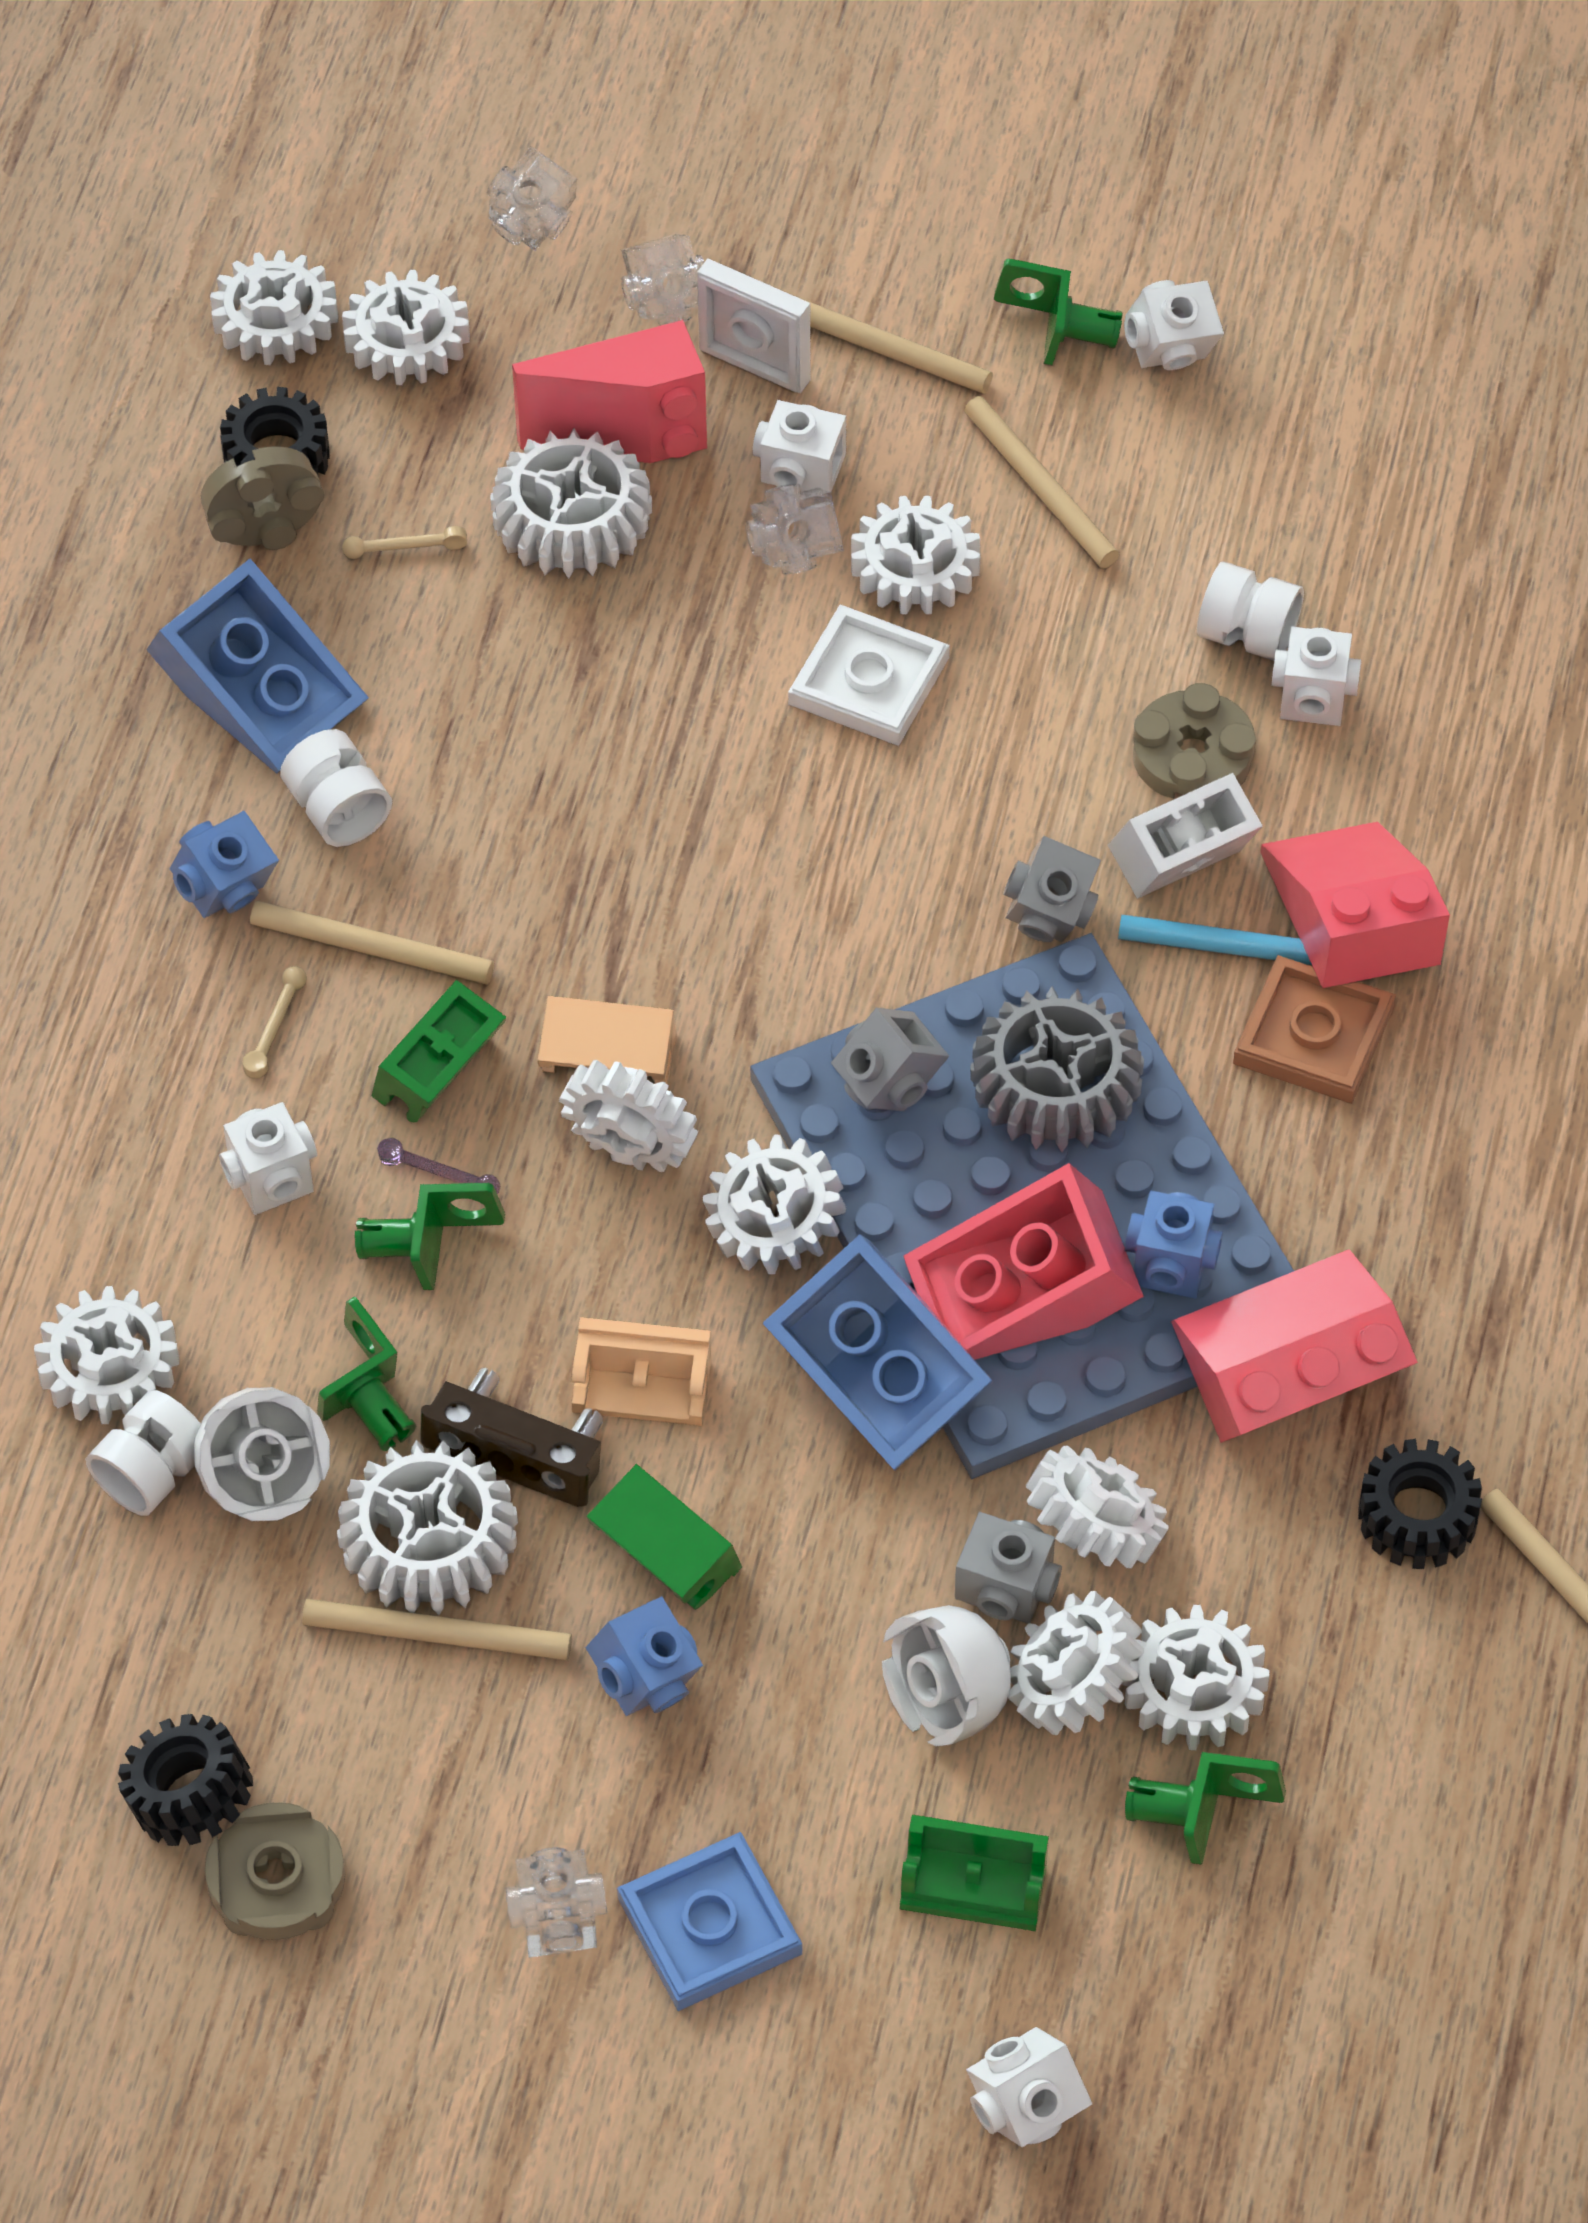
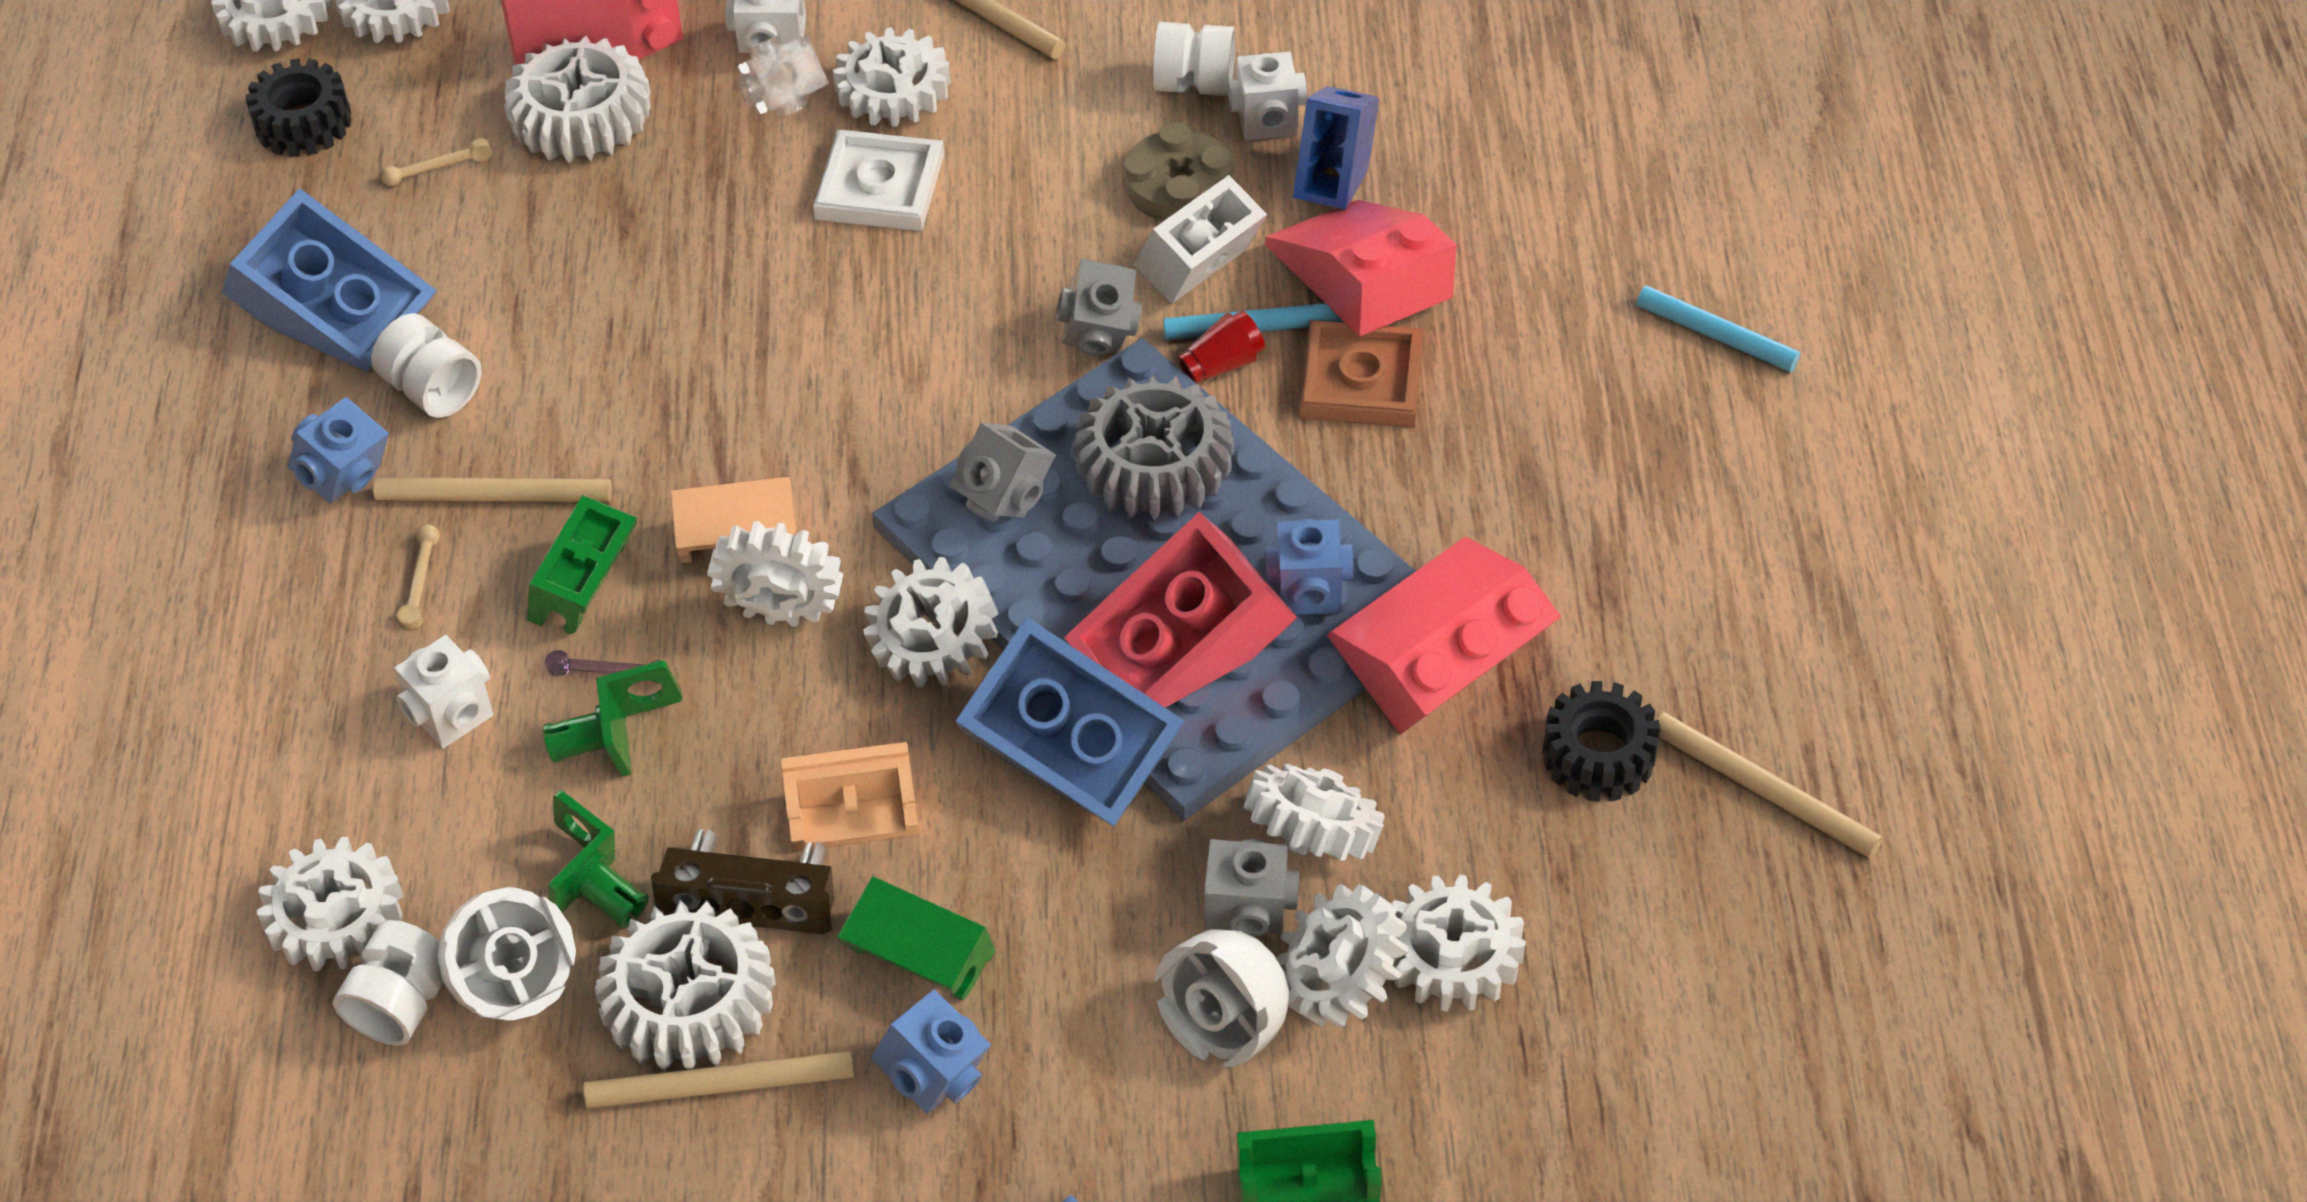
camera: 15 degrees left, 5 degrees down
(262, 498) = (309, 167): dark tan plate -> none
(1172, 966) = (1222, 348): none -> red cone
(1195, 1803) = (1490, 1058): green bracket -> none
(1372, 738) = (1337, 136): none -> blue torso

